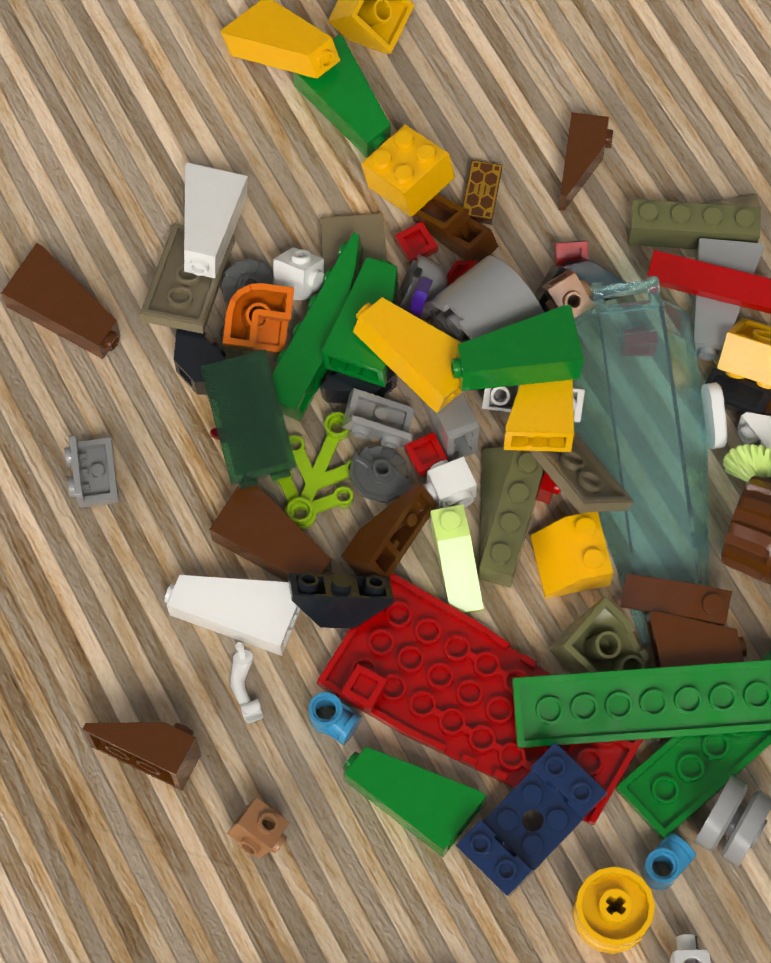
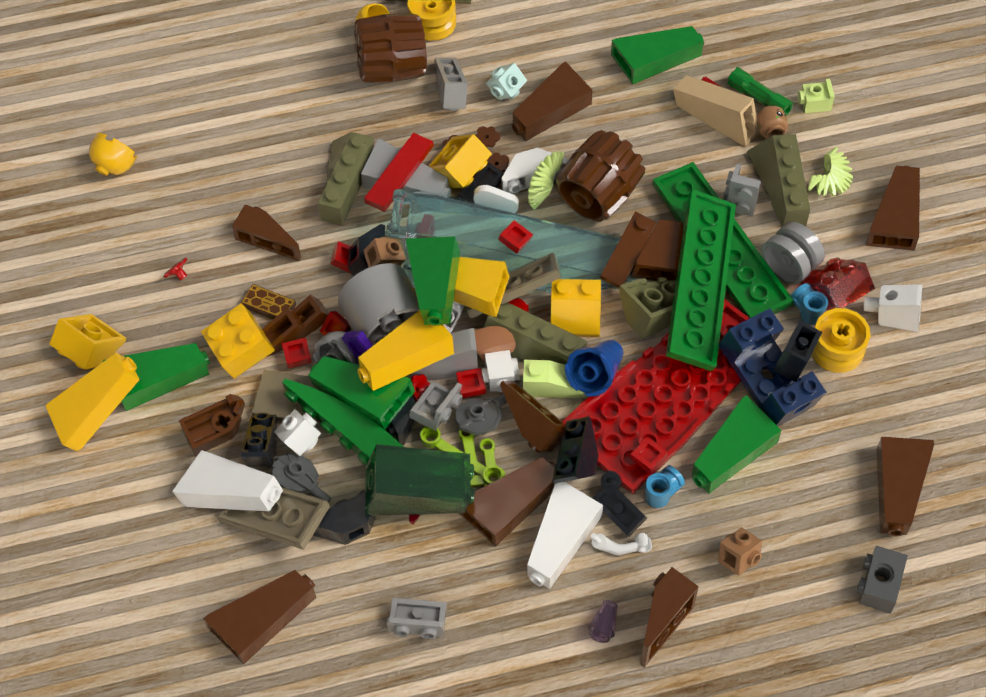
camera: 75 degrees left, 10 degrees down
(133, 684) = (604, 622): none -> clear purple cone
(258, 318) = (327, 466): orange brick -> none
(272, 235) = (260, 441): none -> black slope
(281, 172) = (204, 427): none -> reddish brown piece
(293, 668) = (617, 505): none -> black hinge
(401, 393) = (420, 385): none -> red plant
(480, 595) = (594, 367): none -> blue cone
(482, 459) = (493, 339): none -> nougat brick
(498, 75) = (177, 270): none -> red plant
(561, 847) = (797, 351): none -> black brick
(636, 444) = (515, 237): none -> red plate
(711, 896) = (841, 281): none -> clear red slope

